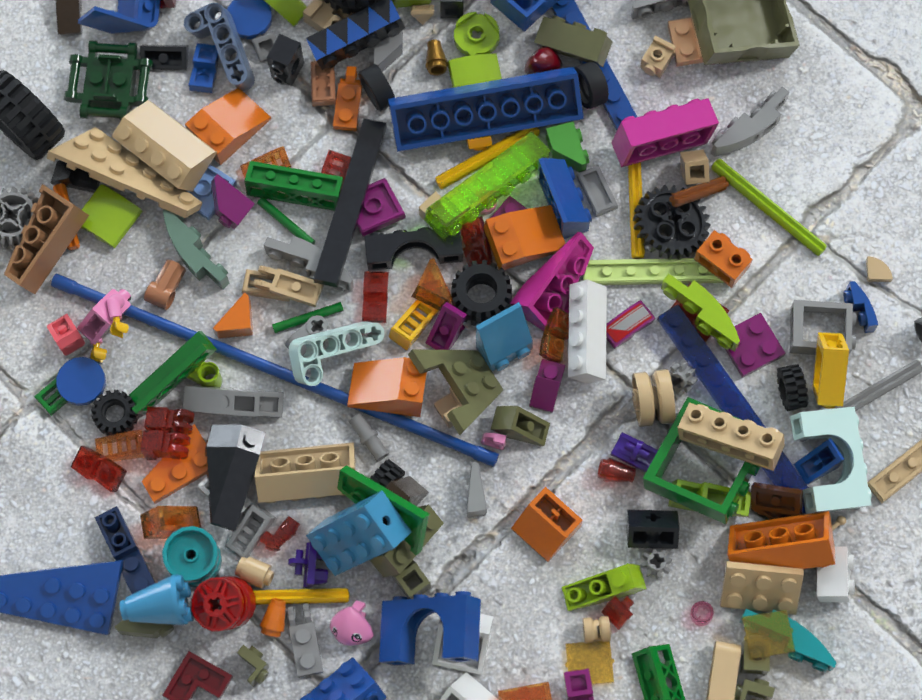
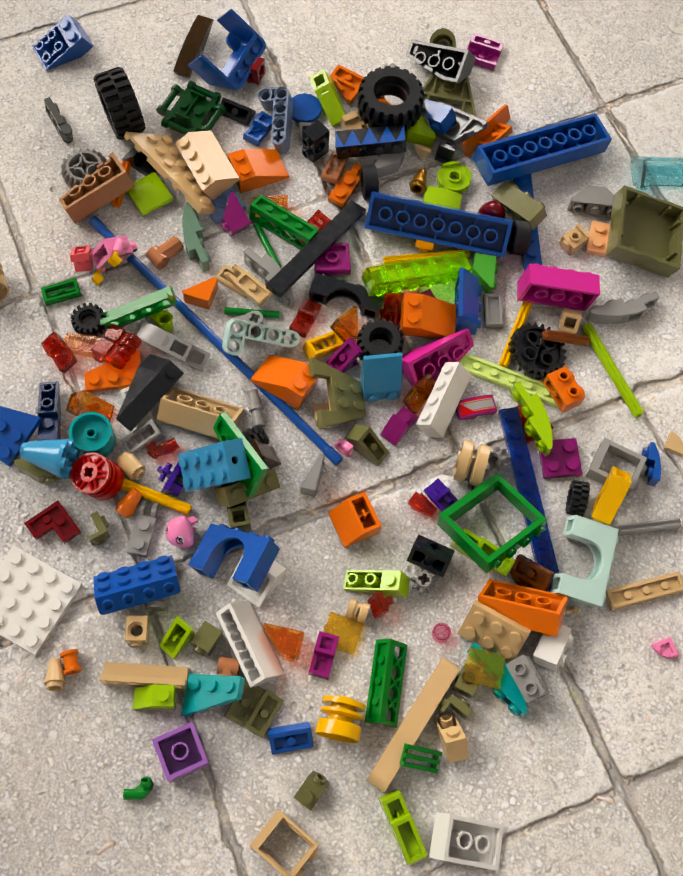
camera: 15 degrees right, 5 degrees down
(81, 381) = (76, 289): blue tile -> none
(731, 436) = (517, 510): tan brick -> none
(819, 462) = (576, 560): blue slope -> none
(822, 626) = (527, 678): none -> light grey panel

